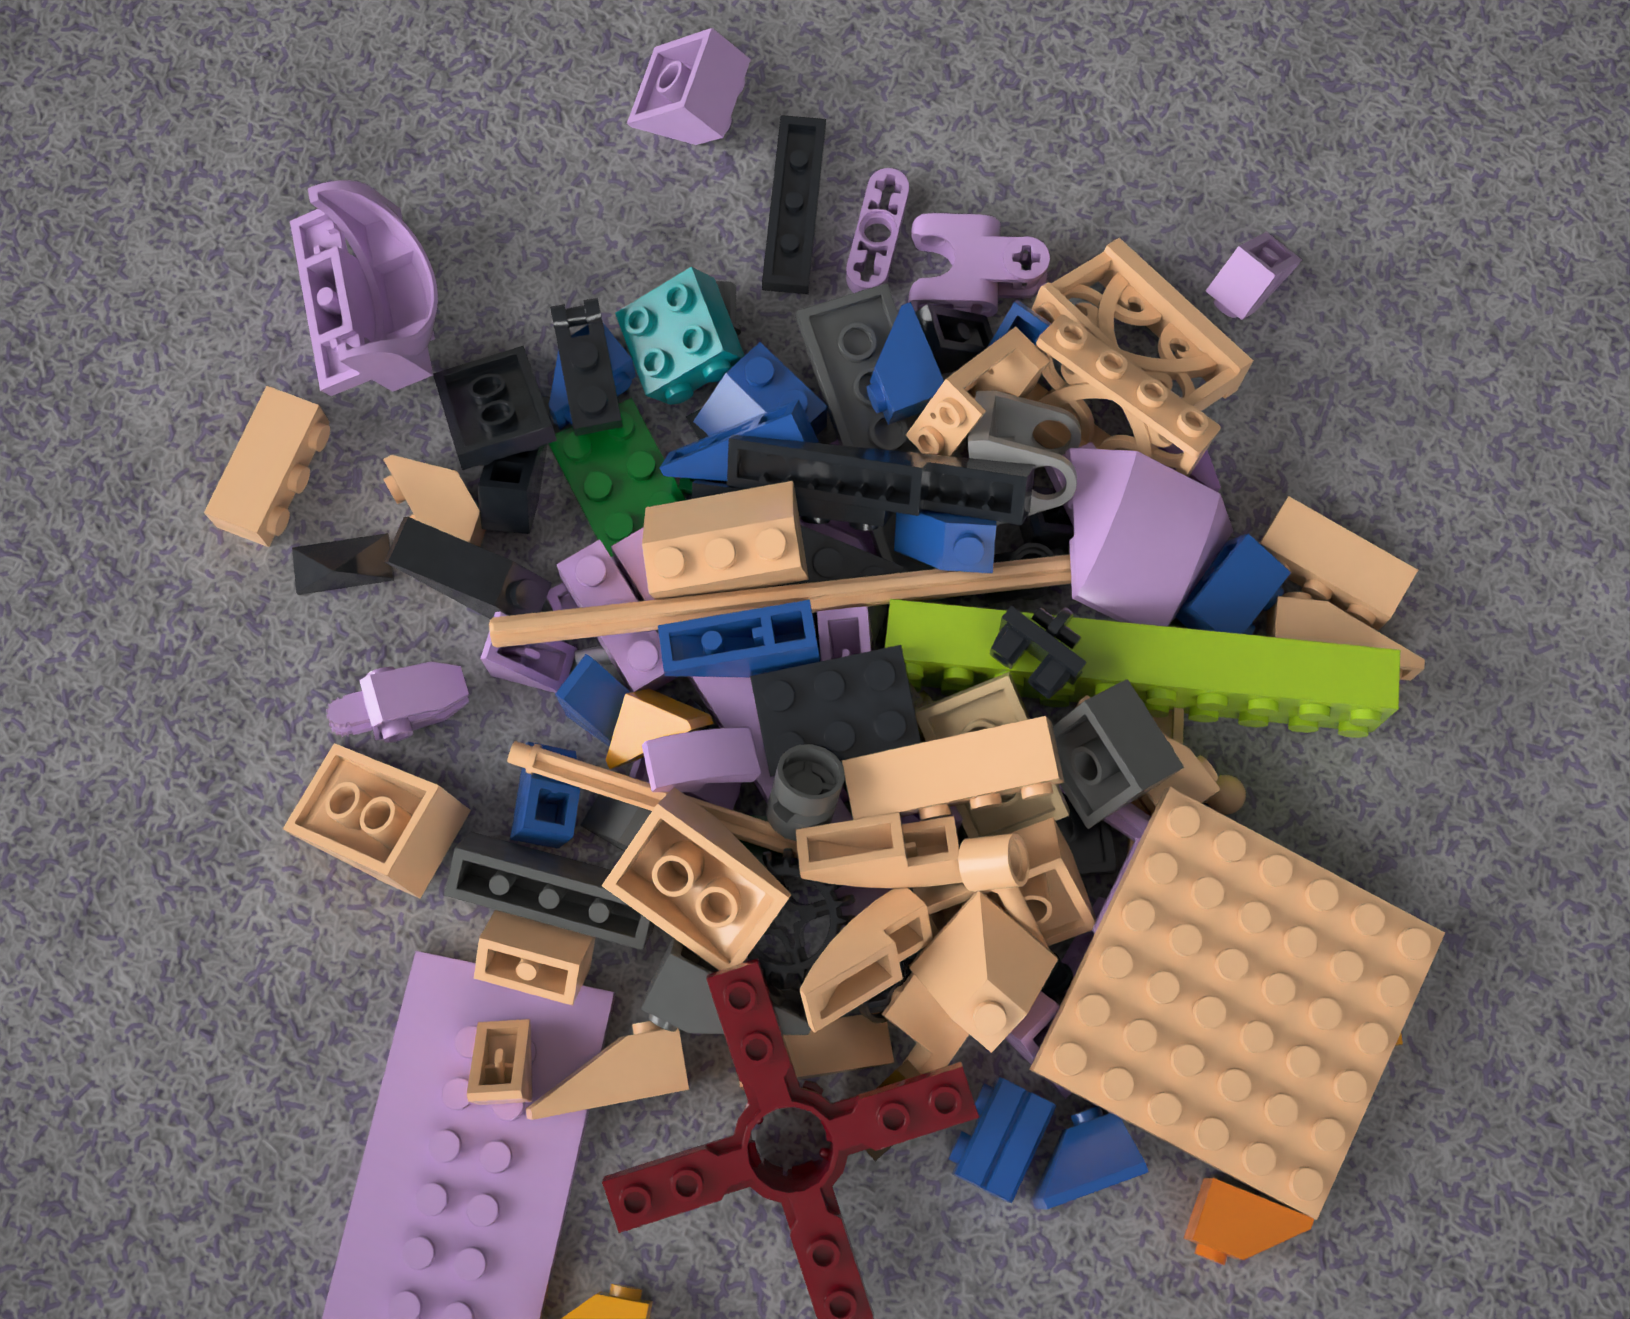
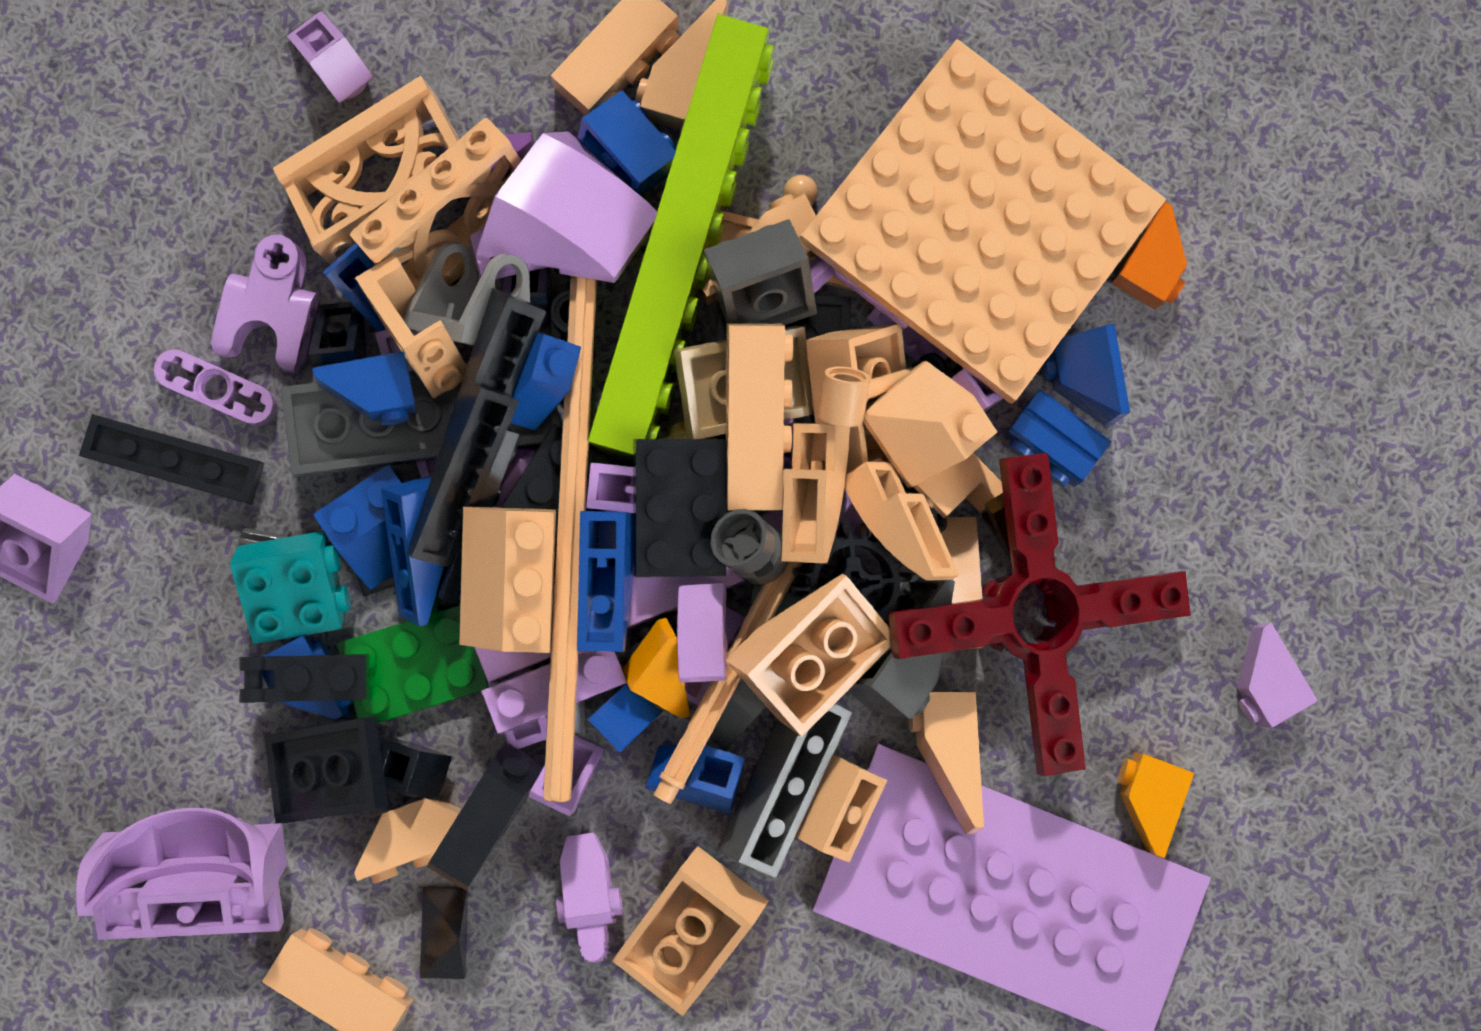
camera: 80 degrees left, 10 degrees up
(501, 1063) = (928, 848): light nougat slope -> none
(1057, 661) = (678, 306): black hips -> none

